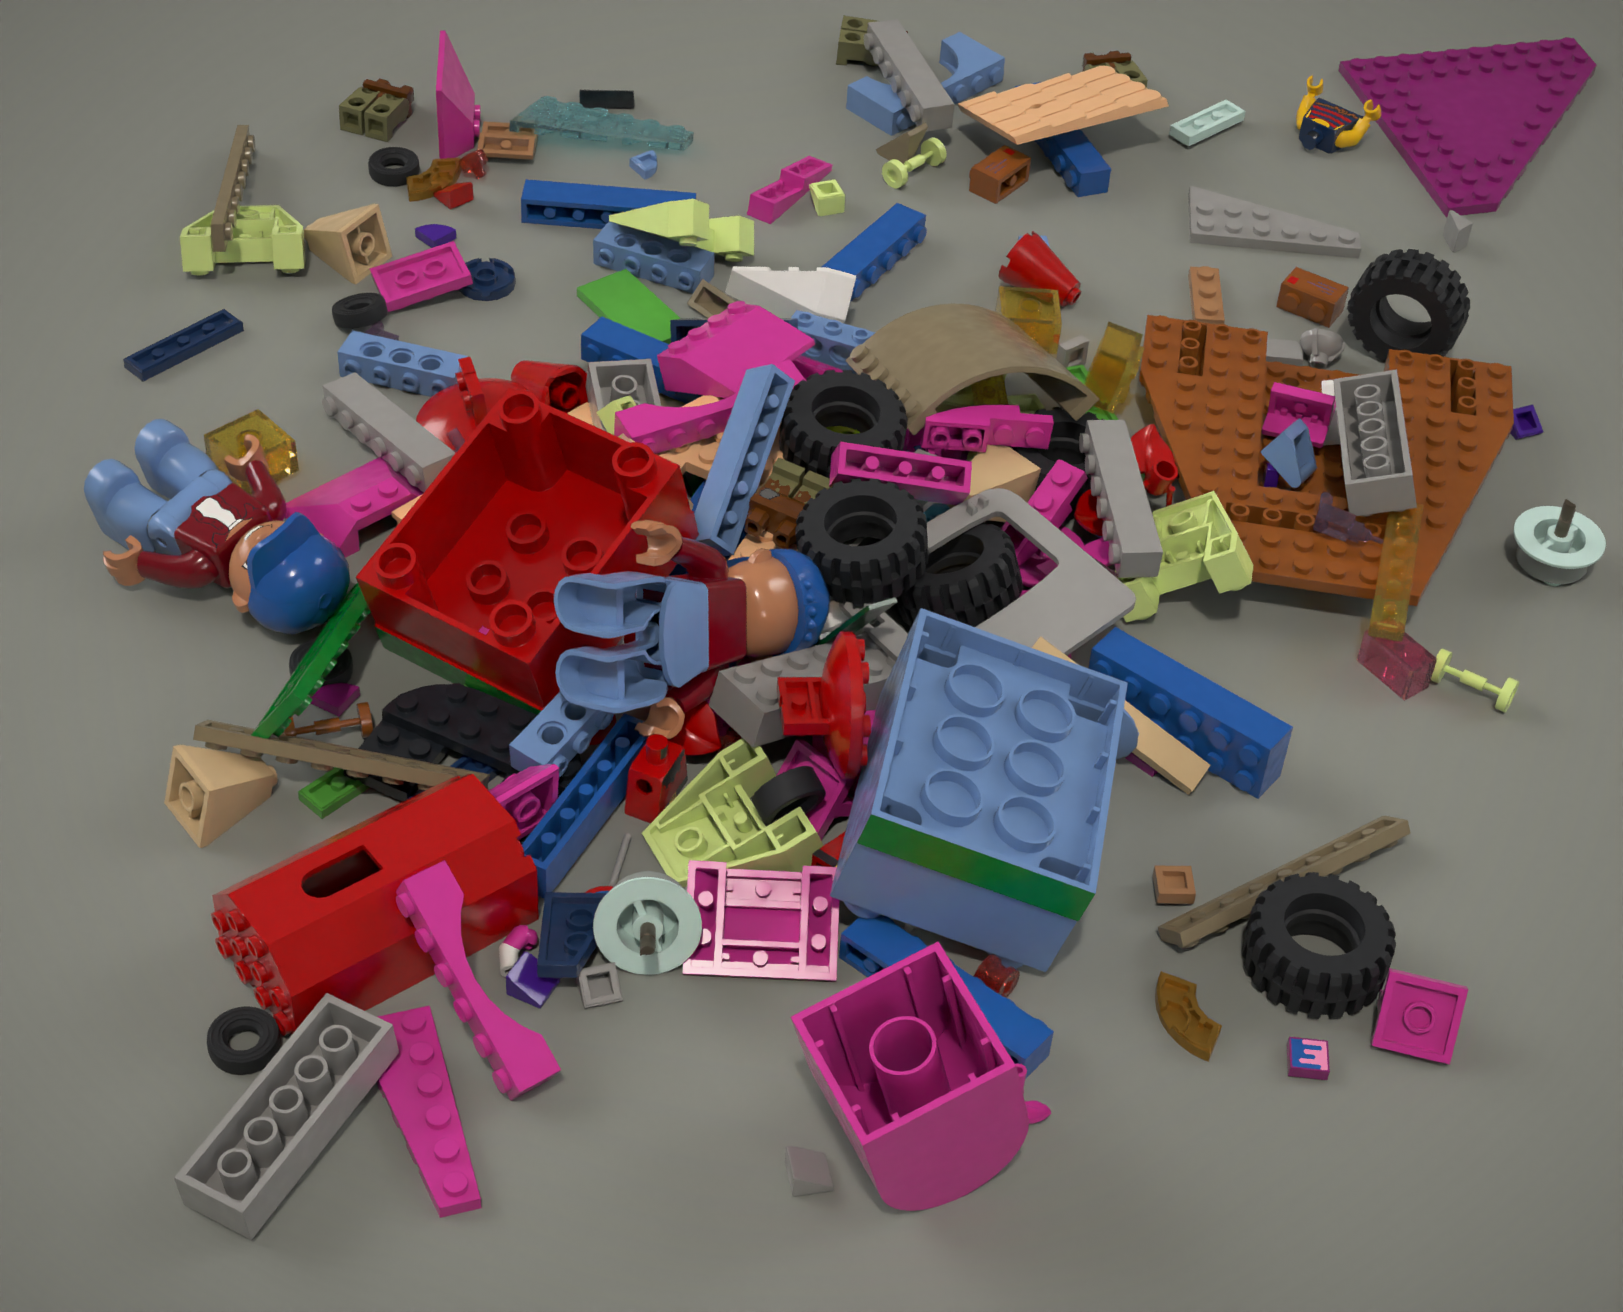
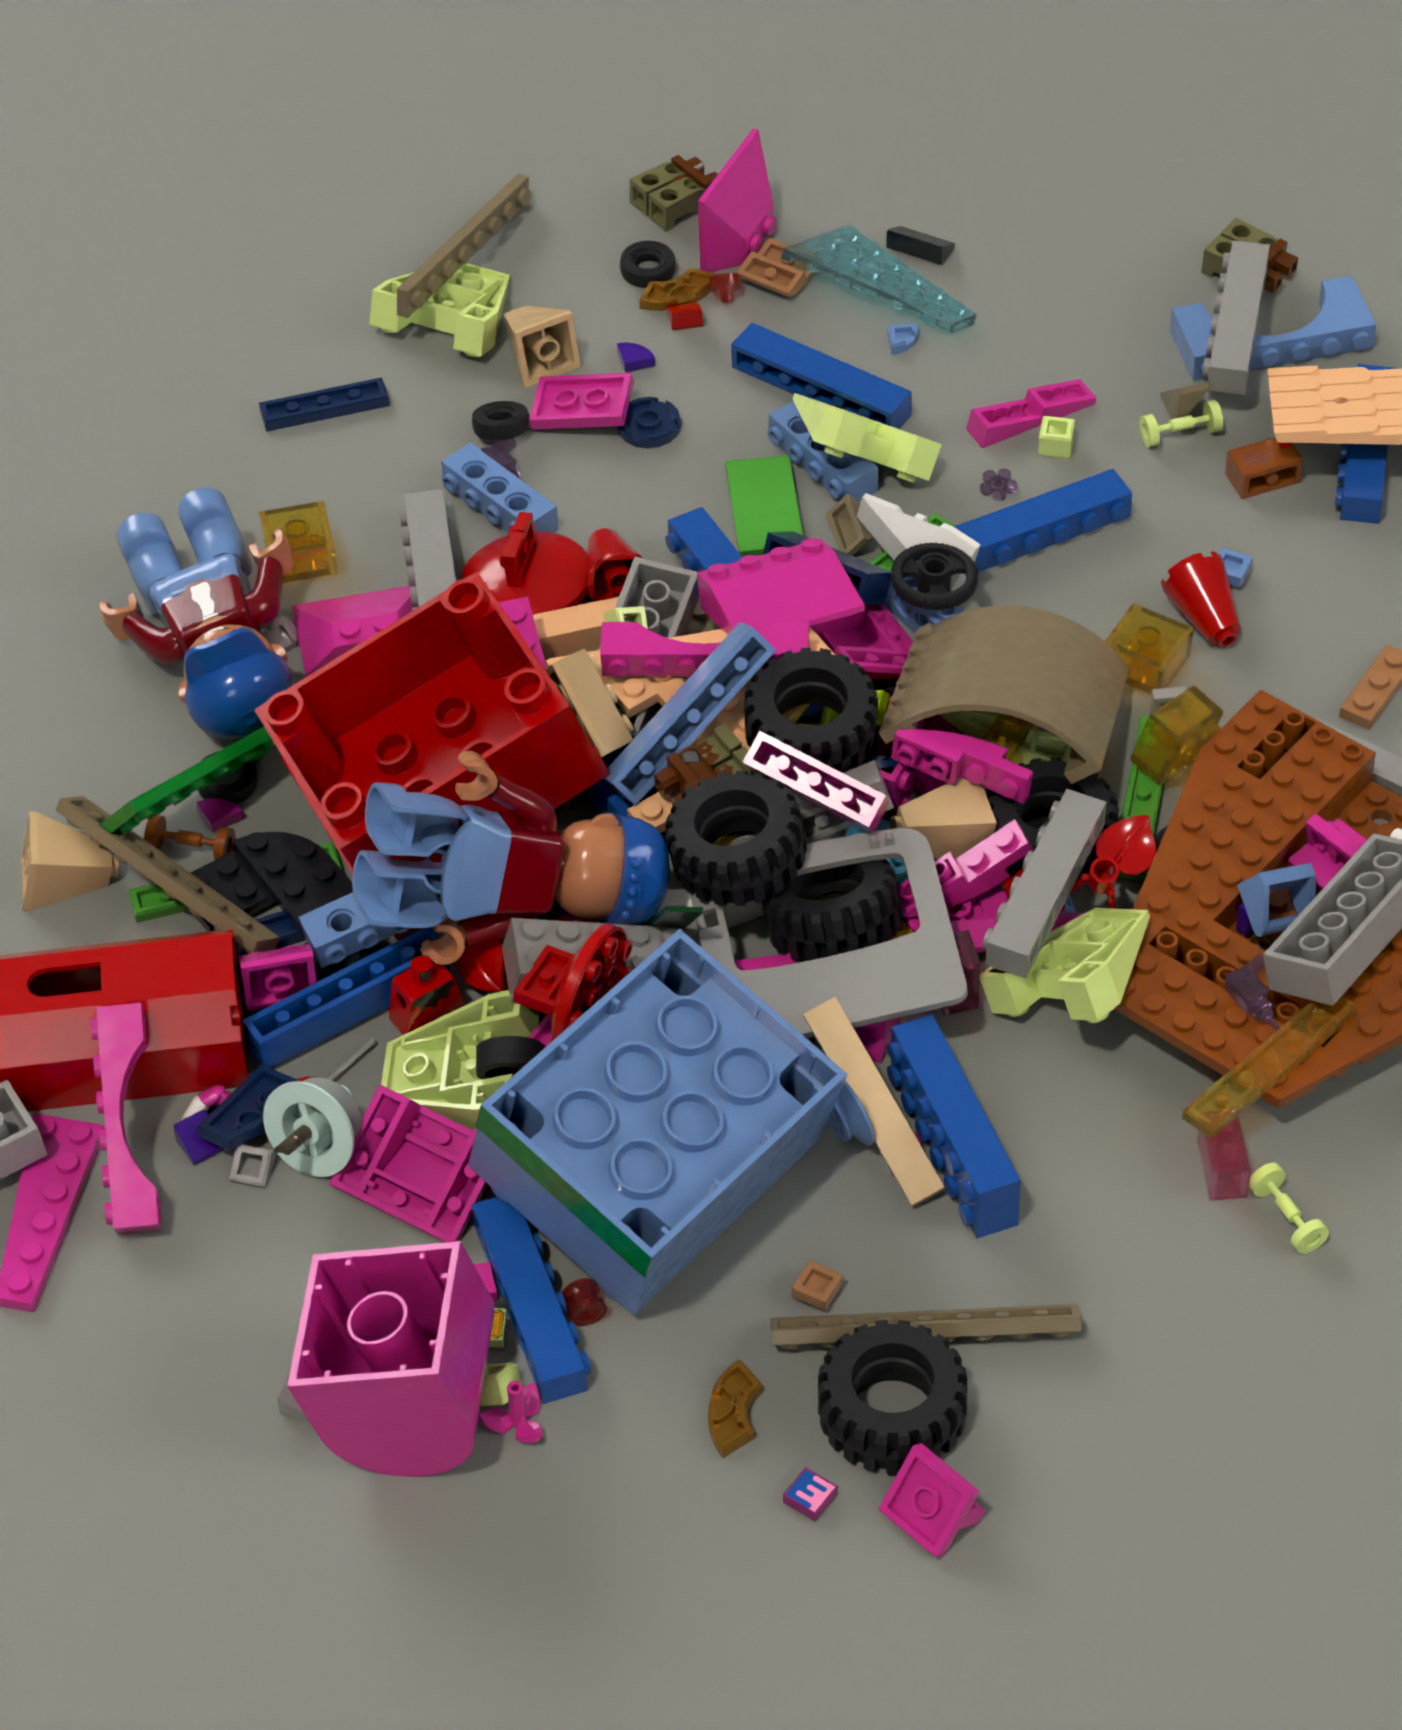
camera: 35 degrees right, 5 degrees up
(806, 243) = (998, 484): none -> clear purple plant
(837, 309) = (933, 575): none -> black wheel

